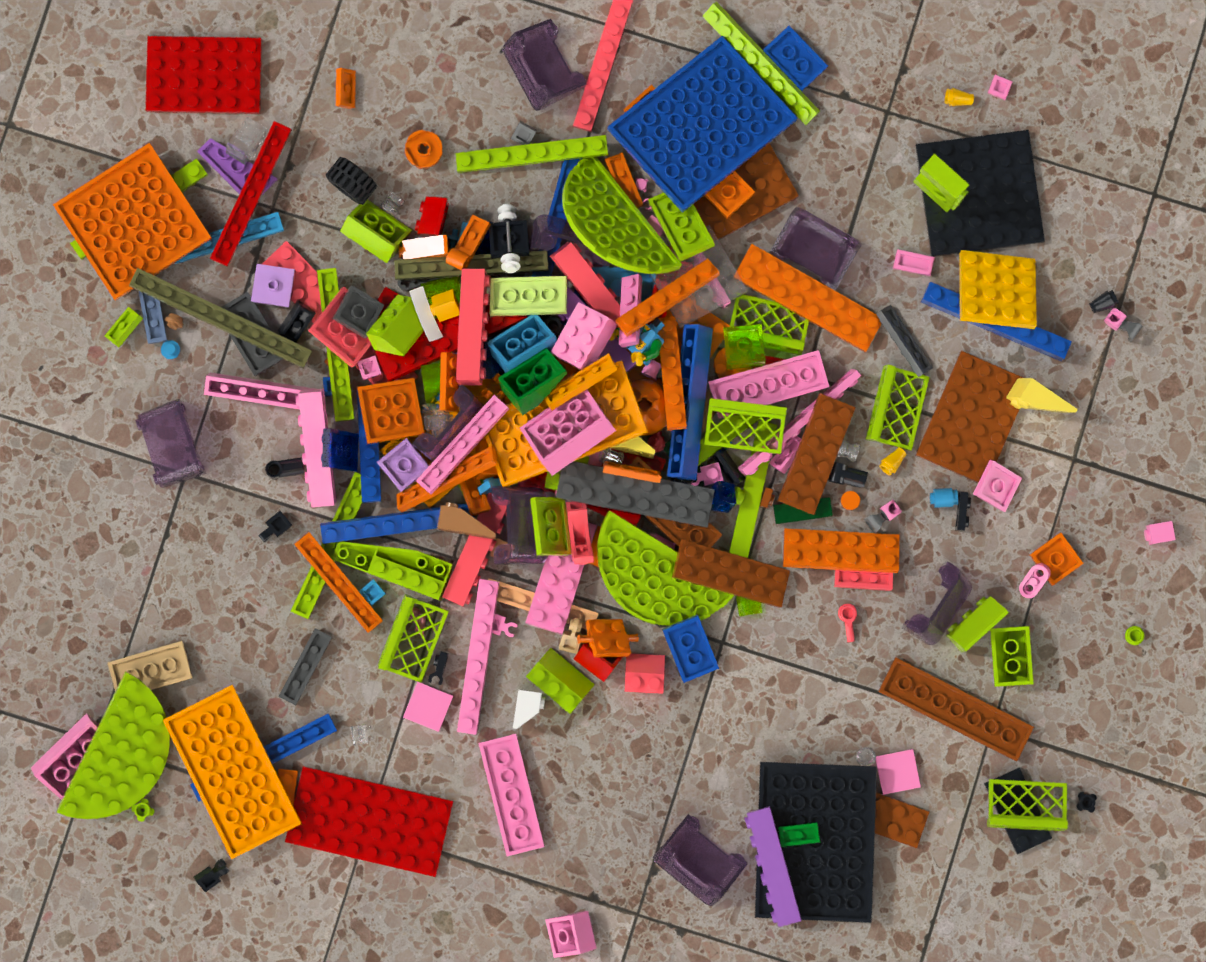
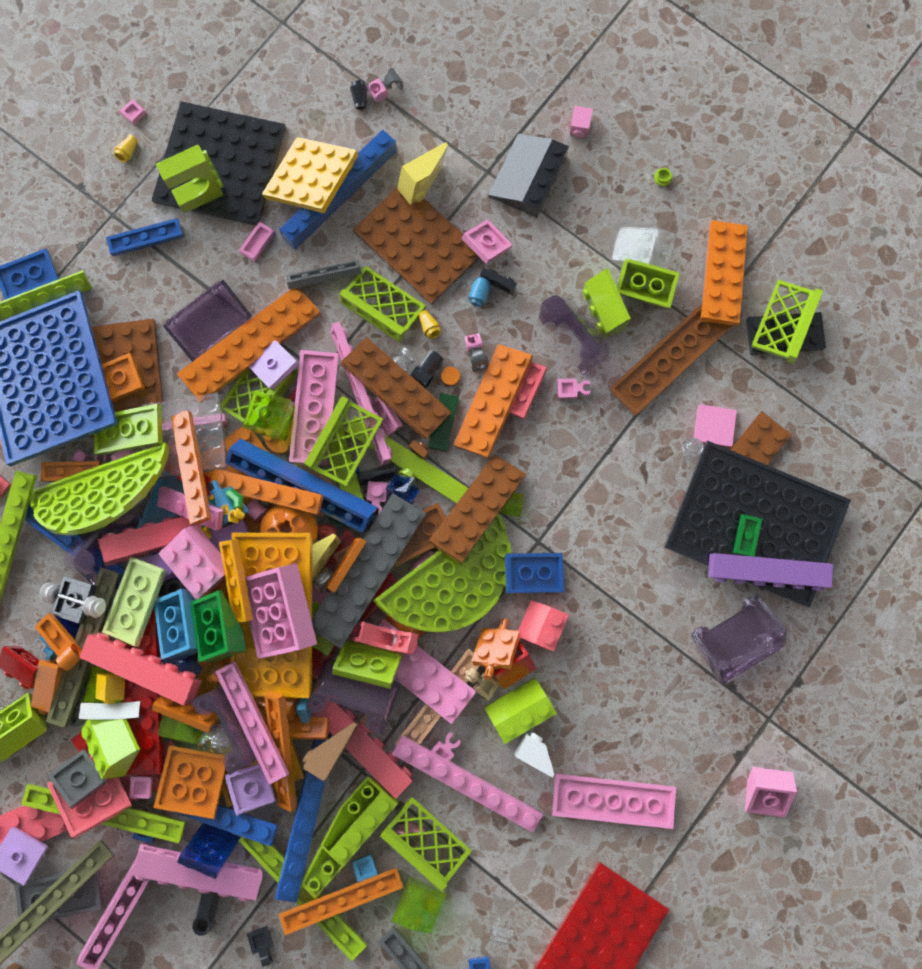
camera: 70 degrees left, 5 degrees down
(296, 321) = (69, 849): black slope -> none
(357, 652) = (418, 906): none -> clear neon green slope
(428, 706) = (498, 852): bright pink tile -> none
(440, 661) = (459, 823): black plate -> none
(795, 330) = (274, 365): none -> plate
(848, 614) = (554, 416): coral plate -> none
(876, 154) = (144, 237): none -> blue plate
(880, 619) = (569, 388): none -> bright pink plate
(1034, 579) = (584, 240): bright pink plate -> none
(1049, 640) = (644, 245): none -> clear slope
(1055, 728) = (724, 273): none -> orange plate
(1058, 557) = (571, 217): orange plate -> none
(1086, 500) = (529, 173): none -> slope
(1091, 802) = (801, 267): black plate -> none

